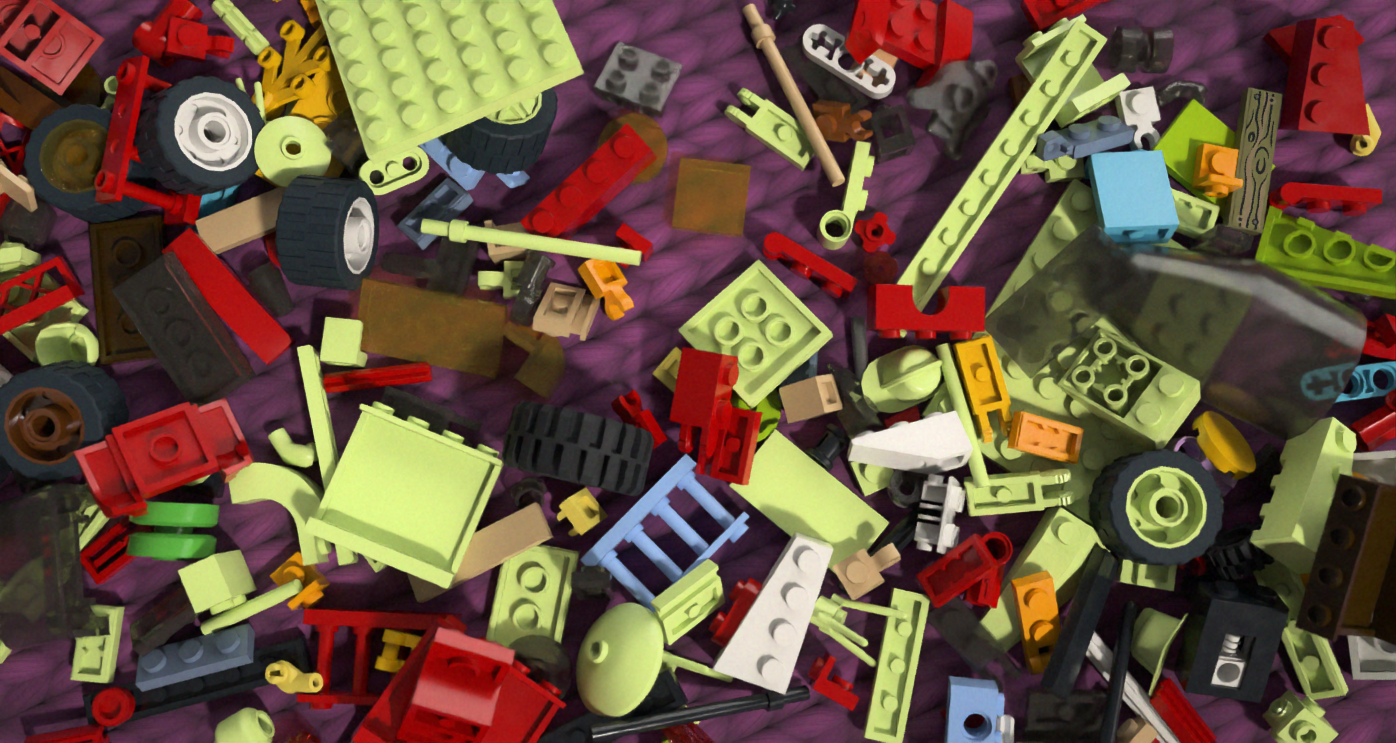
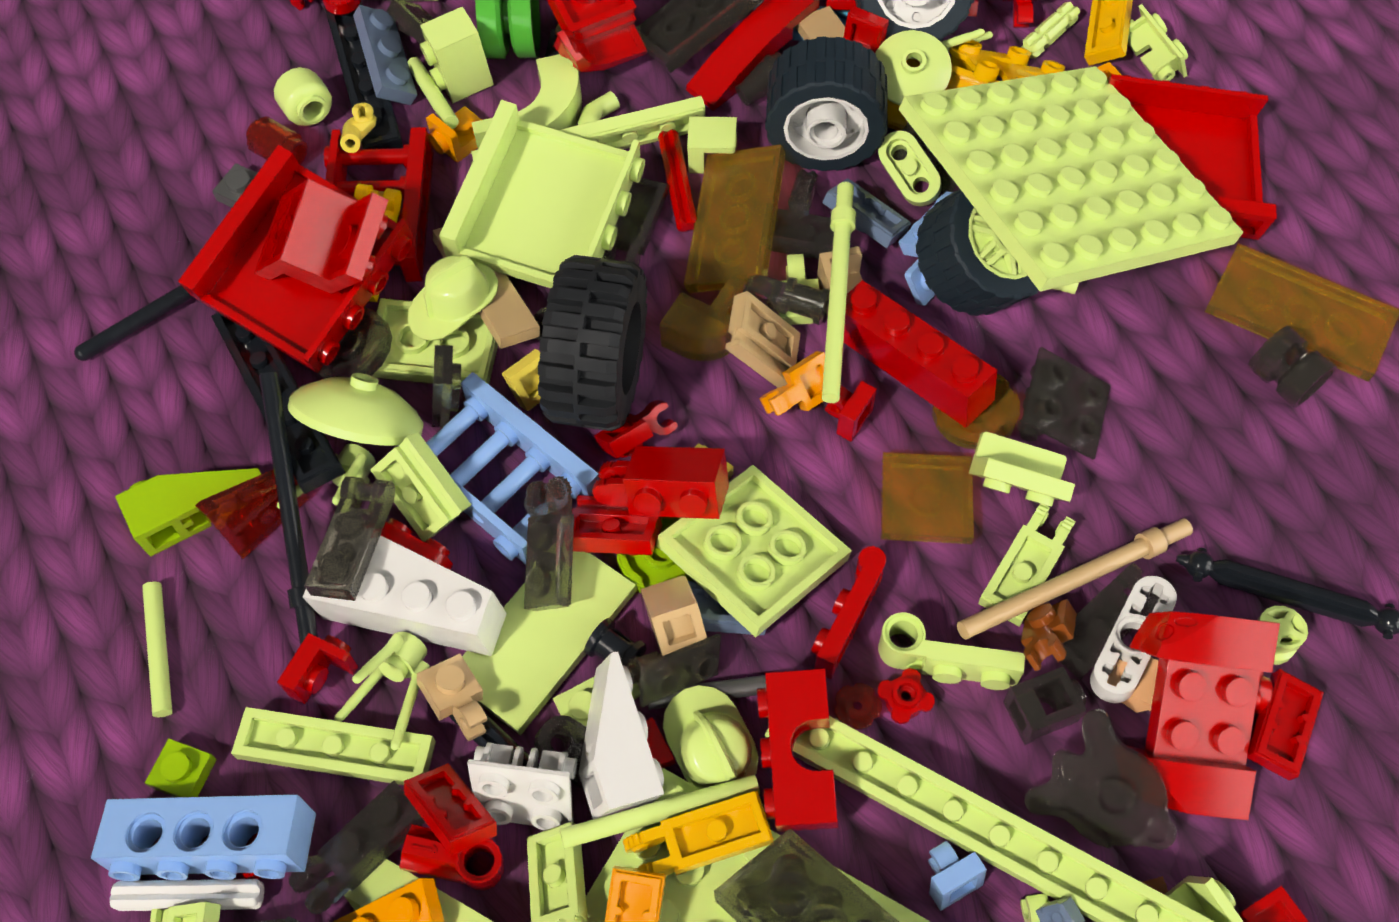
camera: 90 degrees right, 20 degrees down
(249, 188) = (865, 28): none -> red tile
(498, 580) = (451, 296): none -> yellowish green piece
(701, 121) = (1022, 466): none -> yellowish green bracket
(742, 654) = (350, 539): none -> clear smoke plate
(750, 493) = (549, 545): none -> clear smoke hinge
(1009, 213) = (954, 876): none -> light blue tile

